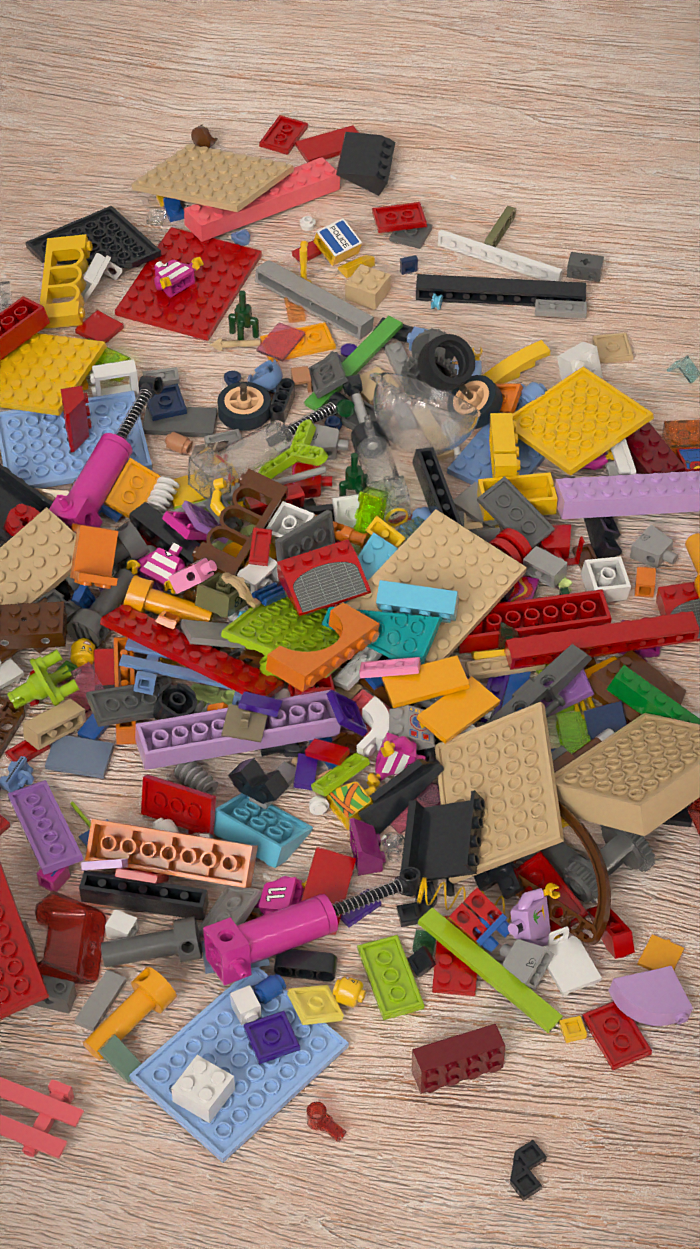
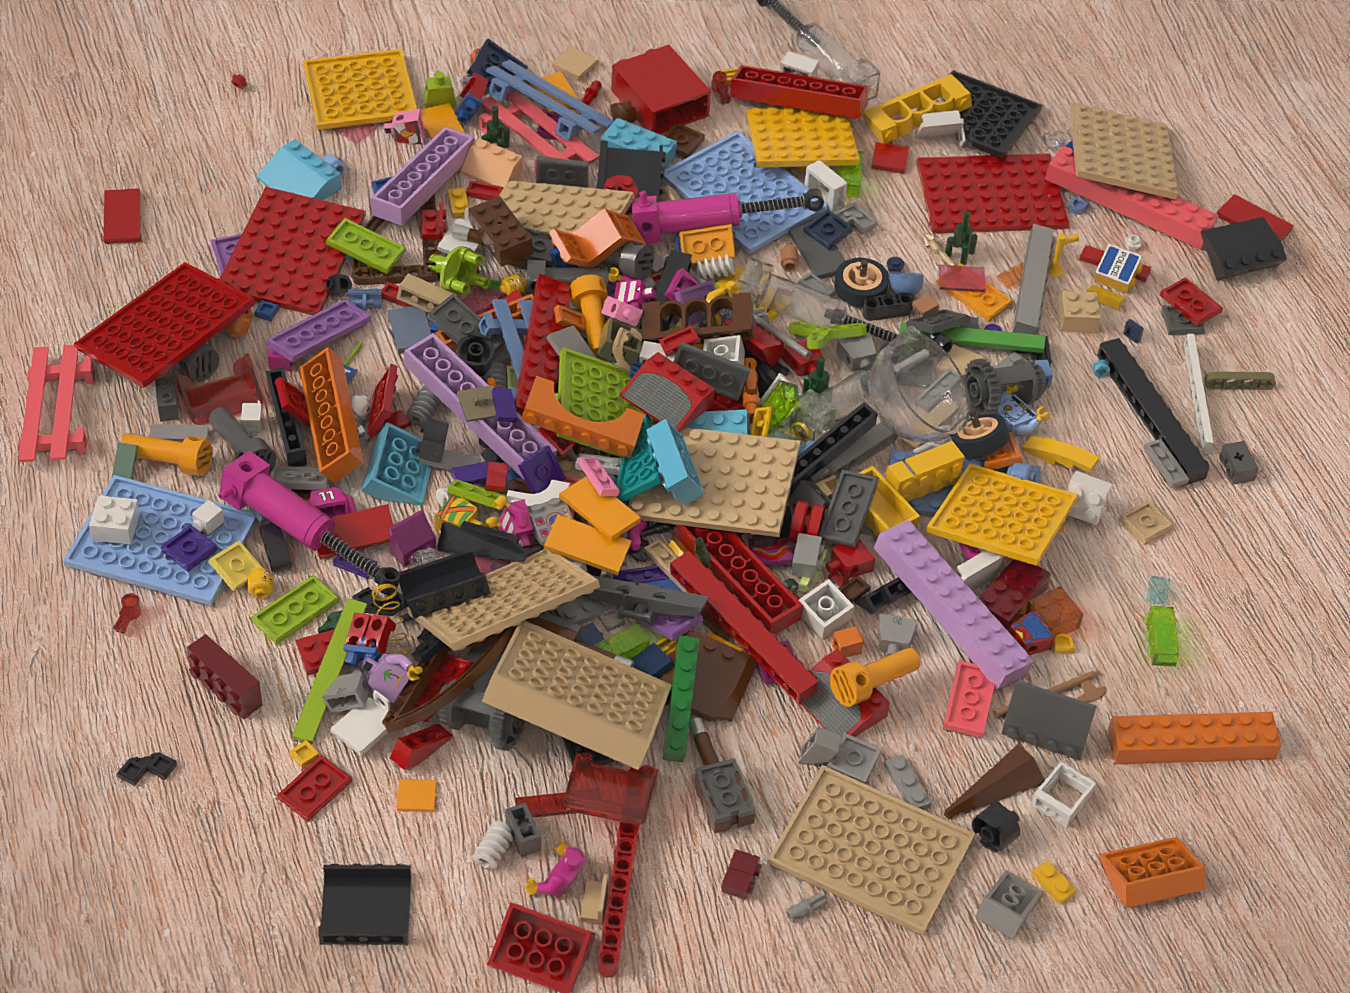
camera: 60 degrees right, 0 degrees up
(76, 415) = (749, 171): red slope -> none
(104, 864) = (295, 377): lavender tile -> none
(175, 276) = (977, 174): dark pink torso -> none
(202, 137) = (1181, 129): reddish brown hair -> none
(269, 988) = (232, 527): blue brick -> none
(283, 134) = (1239, 182): red tile -> none
(421, 961) = (317, 622): black tile -> none
(462, 353) = (966, 364): black tyre -> none
(652, 997) = (360, 797): lavender brick -> none

